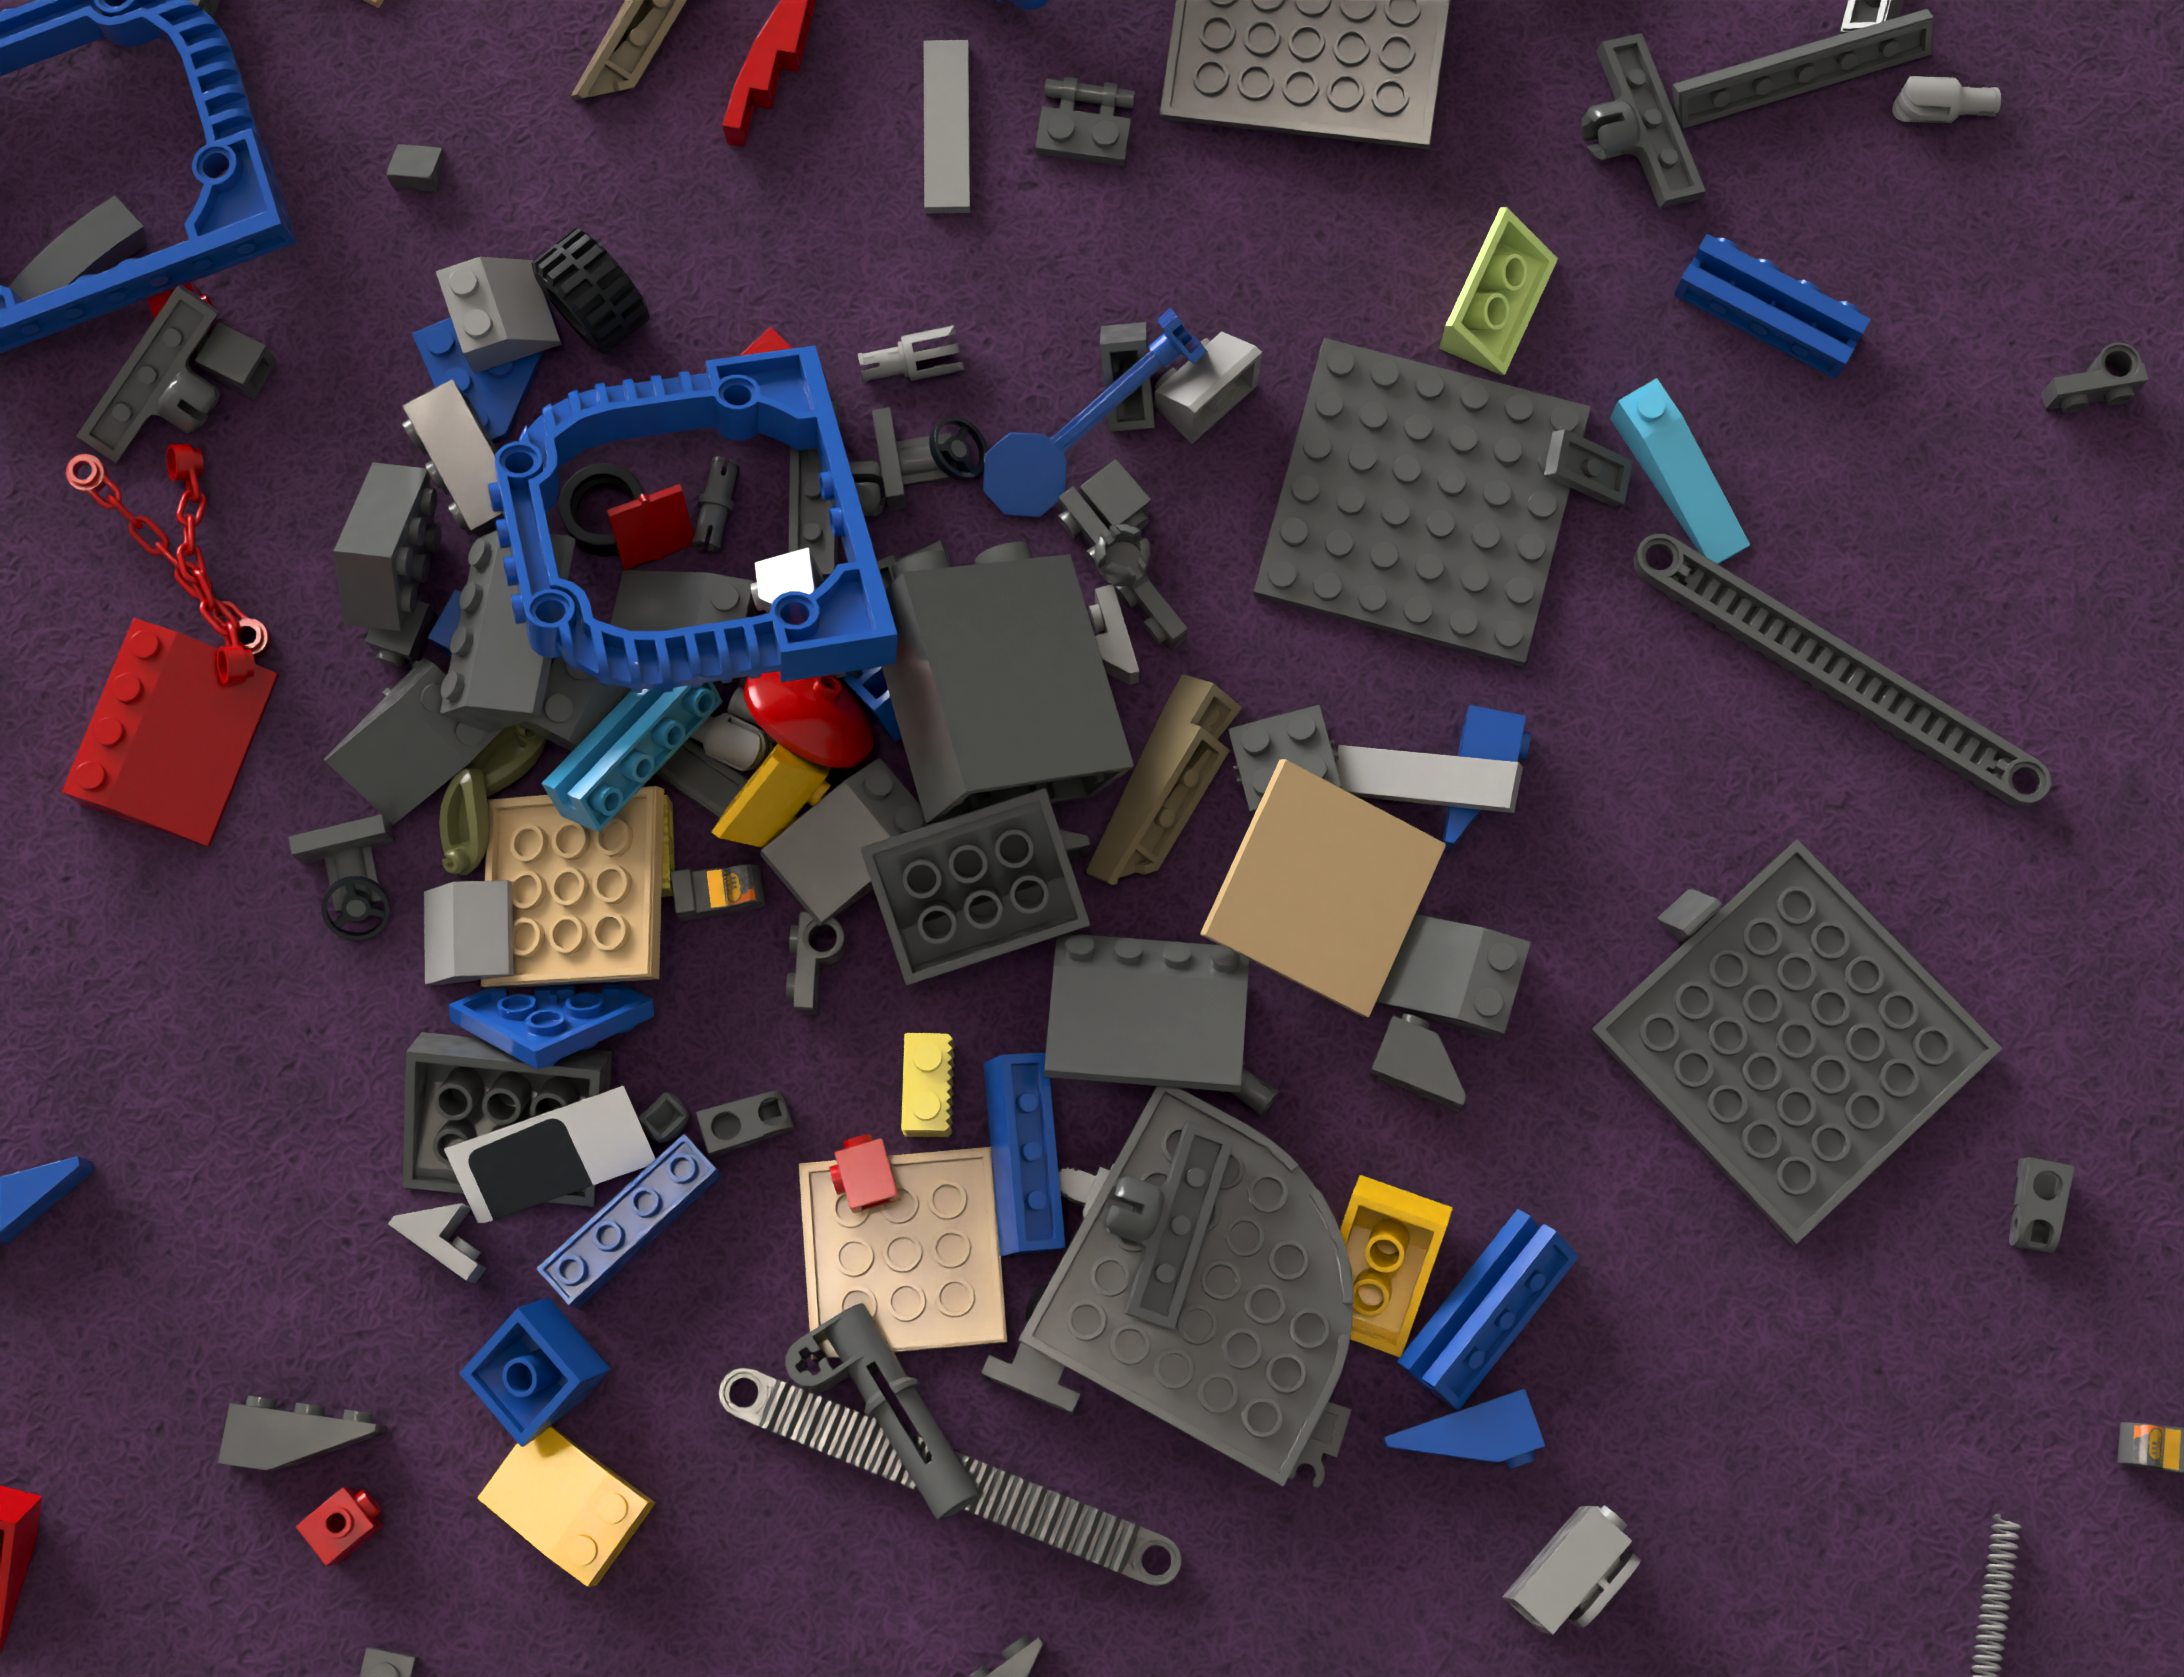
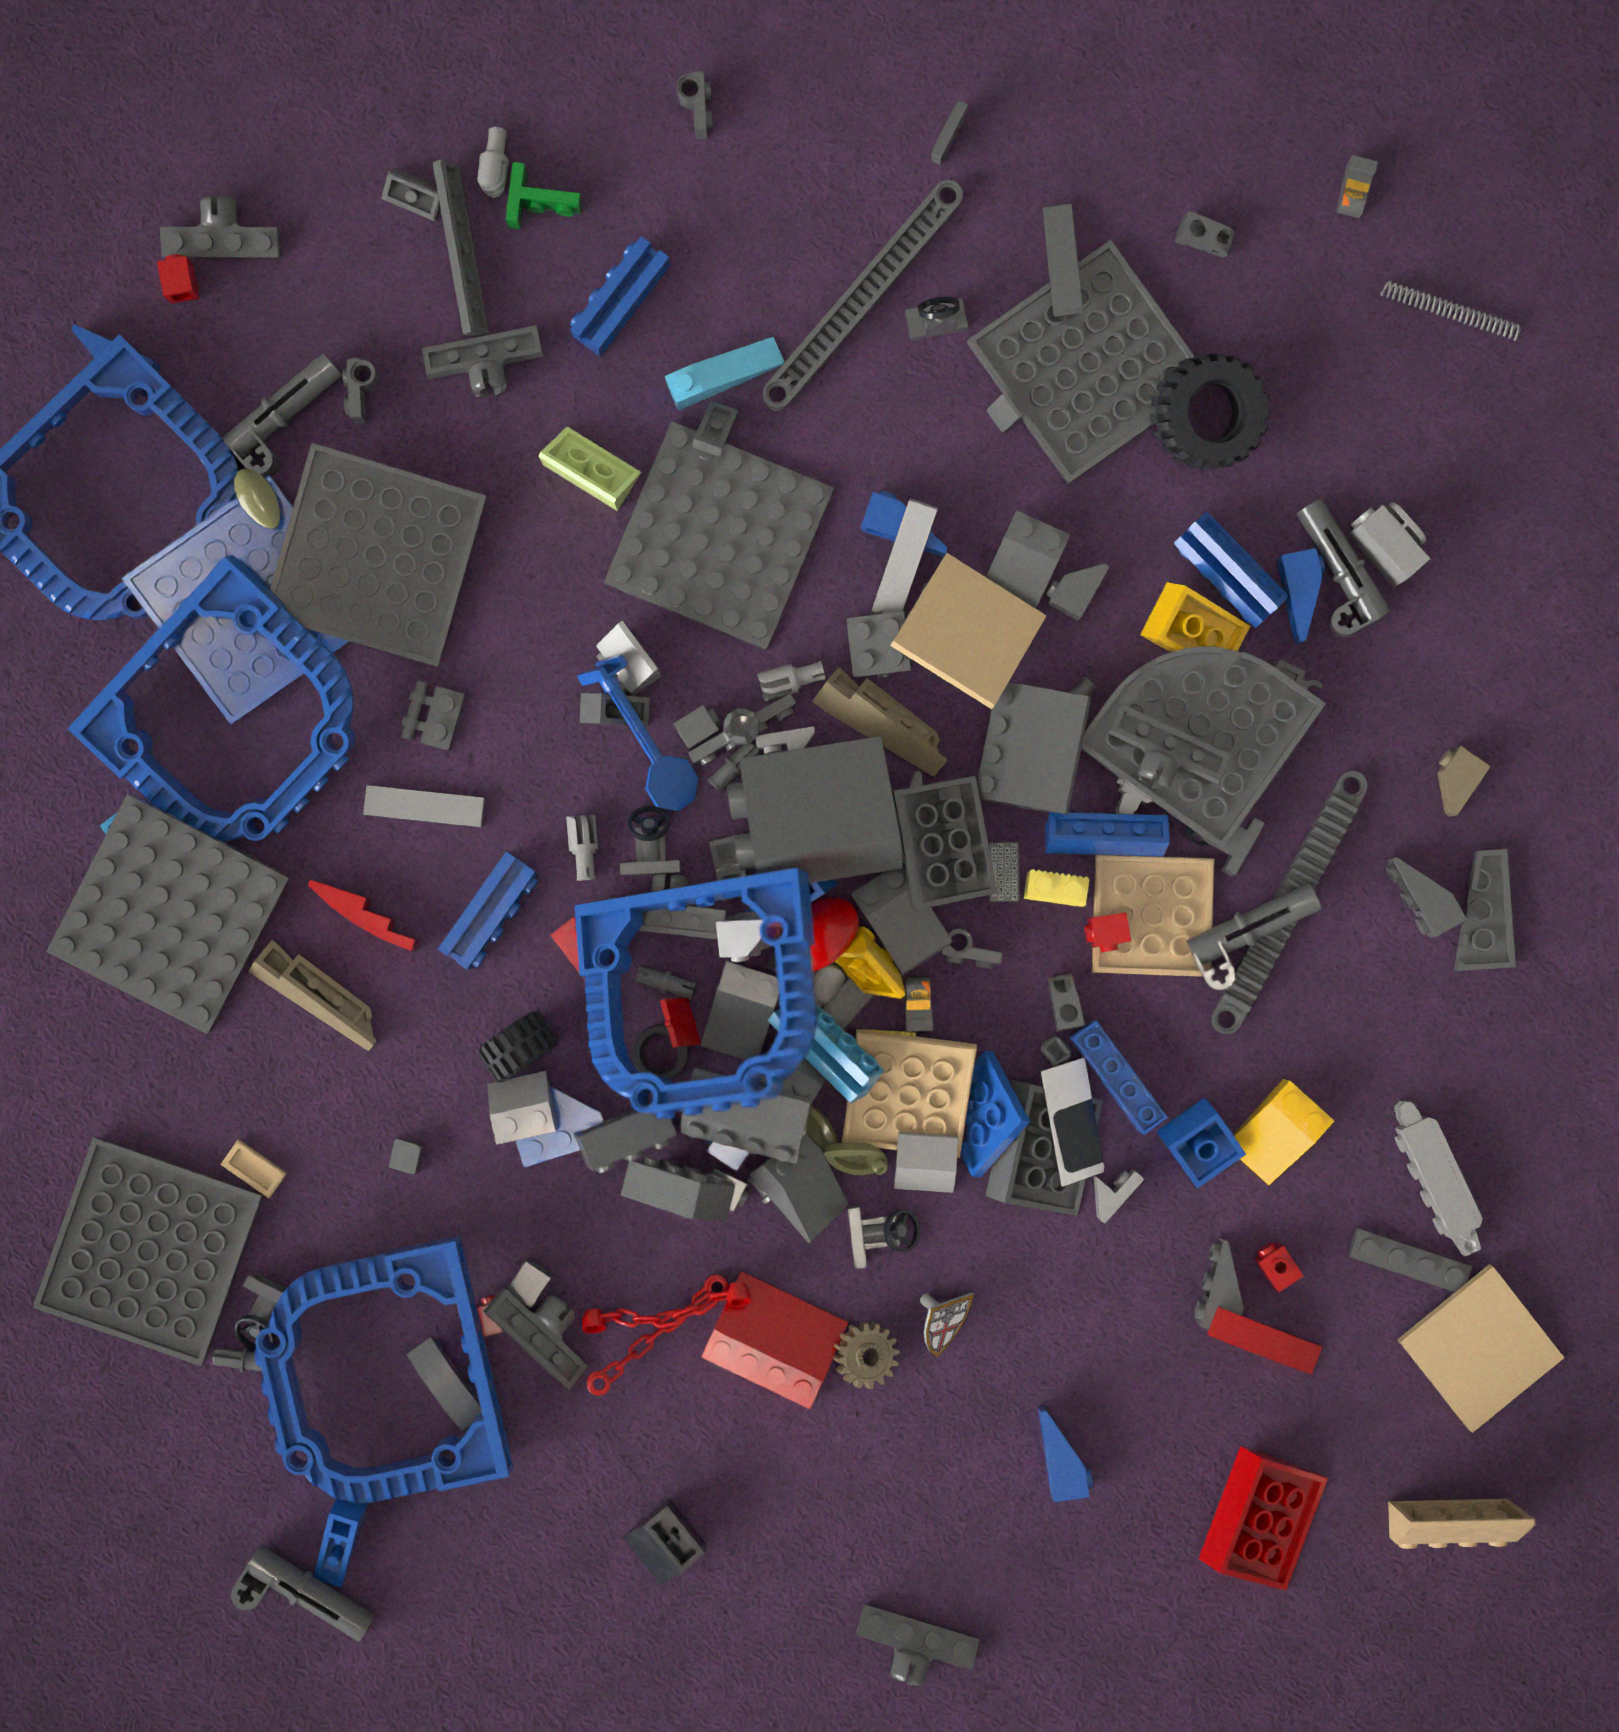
camera: 85 degrees left, 10 degrees up
(130, 878) = (880, 1358): none -> dark tan gear
(215, 989) = (944, 1320): none -> shield
(216, 1516) = (1264, 1340): none -> red slope
(797, 233) = (488, 911): none -> blue brick
(946, 1003) = (1006, 871): none -> tile
(1044, 546) = (731, 767): none -> dark grey axle
(1211, 630) = (787, 679): none -> light grey arm
(1472, 1544) = (1366, 599): none -> dark grey piece
(1730, 1305) = (1247, 411): none -> black tyre
(1824, 789) = (936, 317): none -> dark grey piece
(1899, 145) = (536, 199): none -> green bracket
(1953, 973) = (1062, 260): none -> dark grey tile
(2128, 771) = (949, 132): none -> dark grey tile

